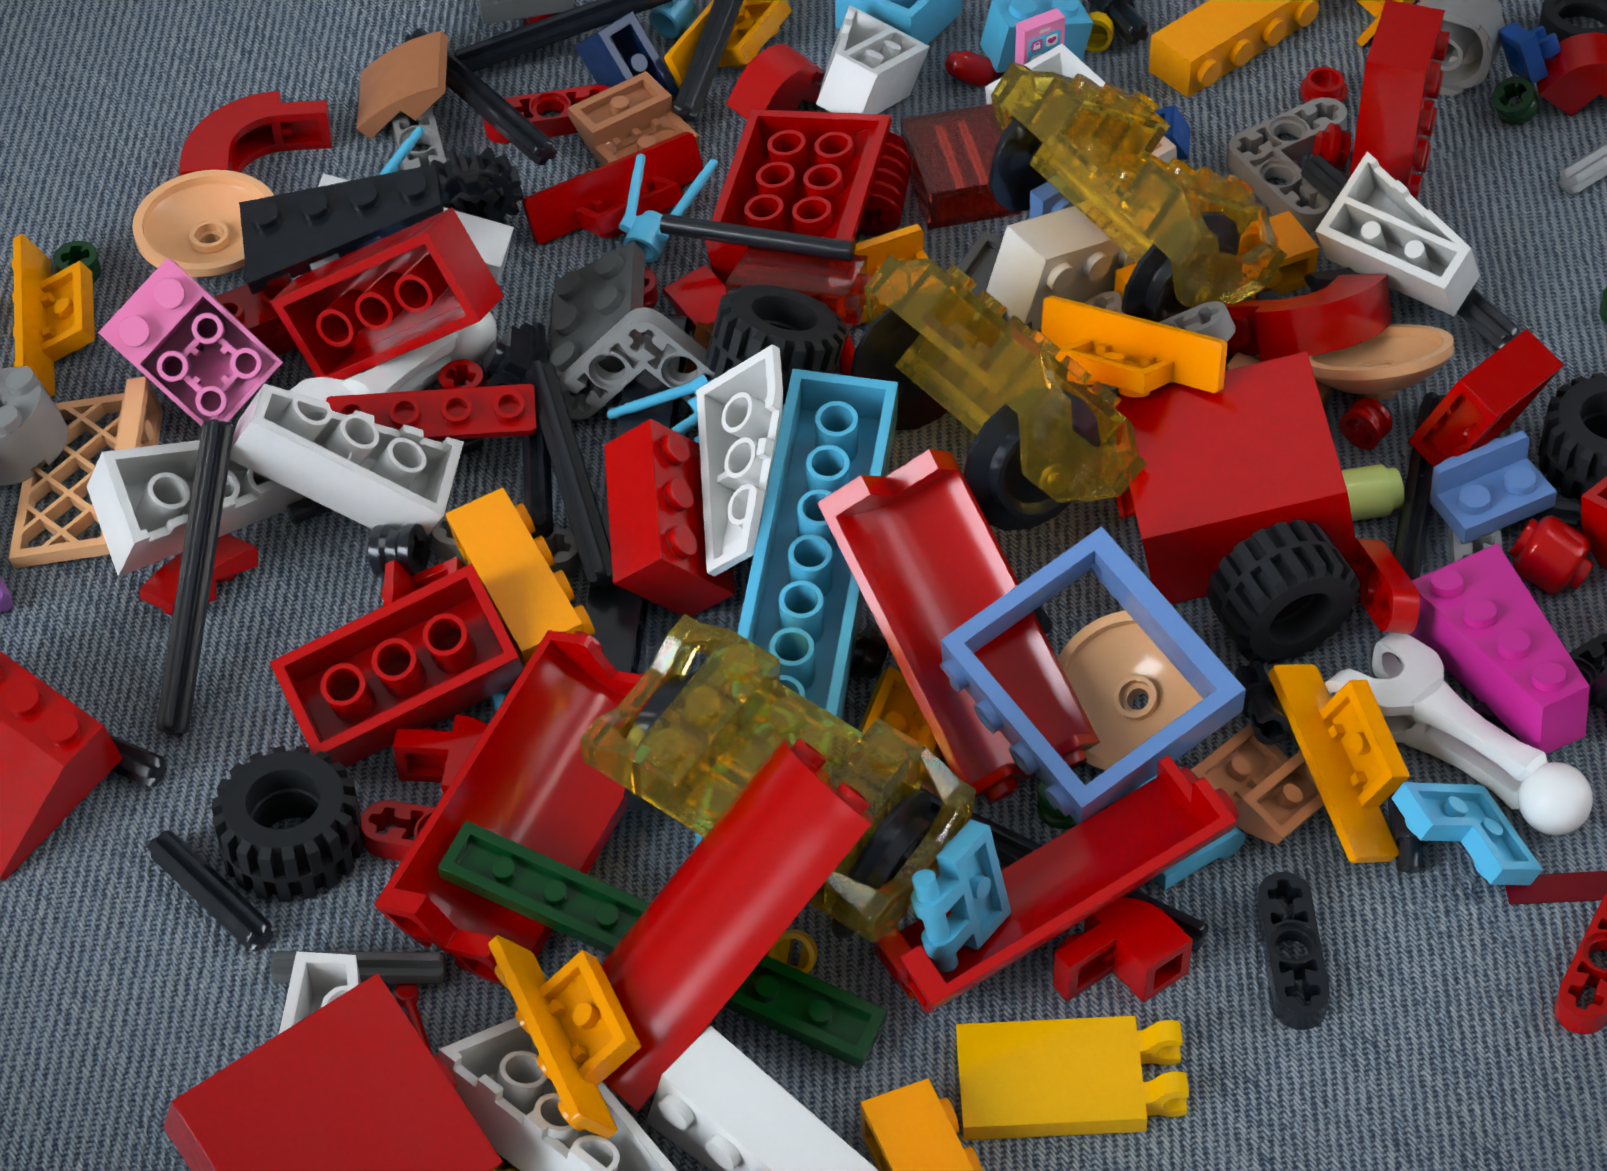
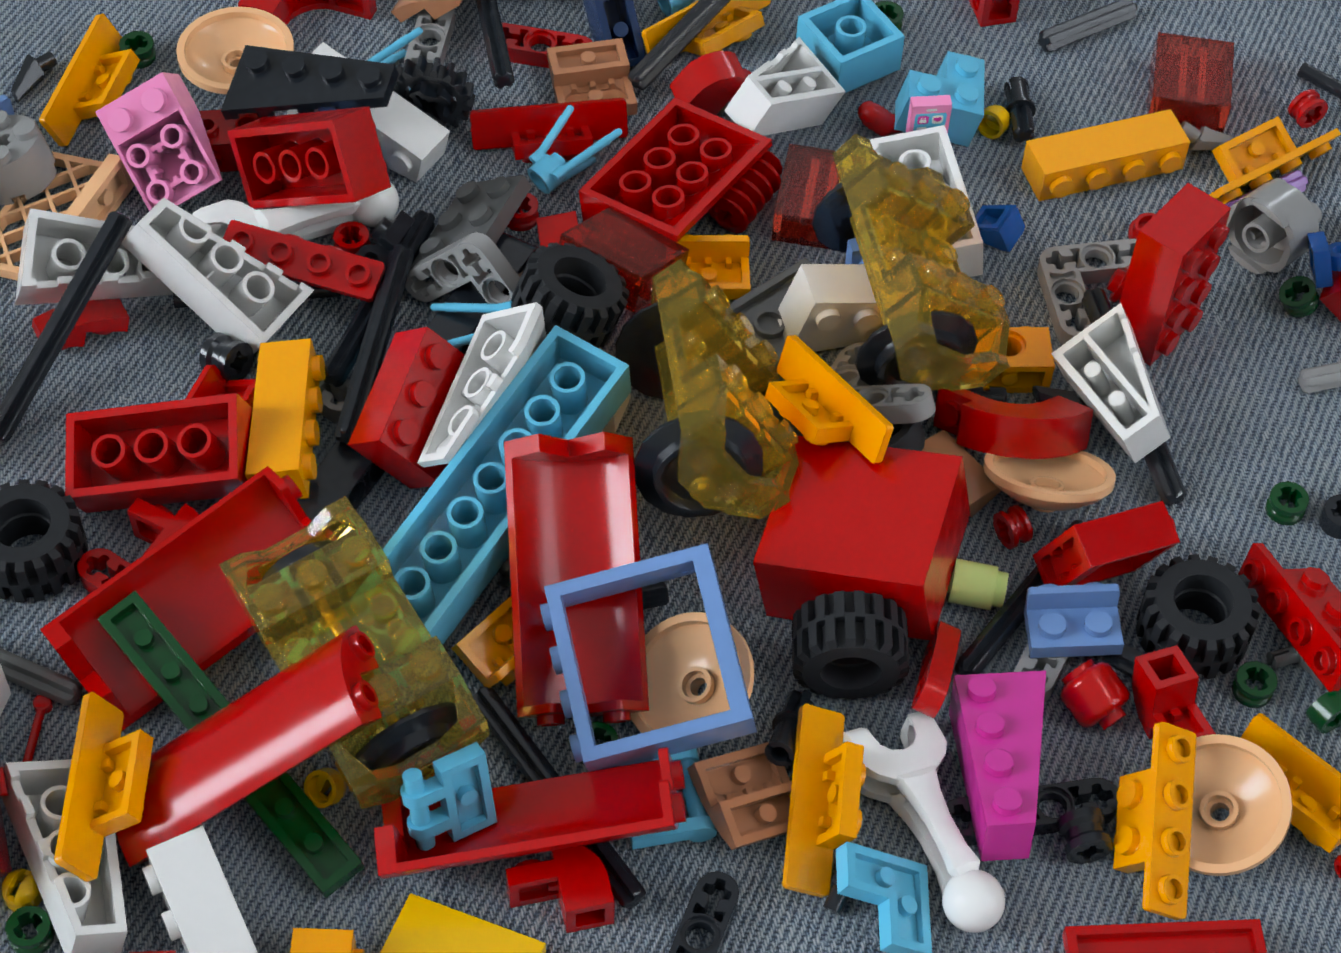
camera: 20 degrees right, 5 degrees up
(757, 237) = (613, 205): black bar -> none

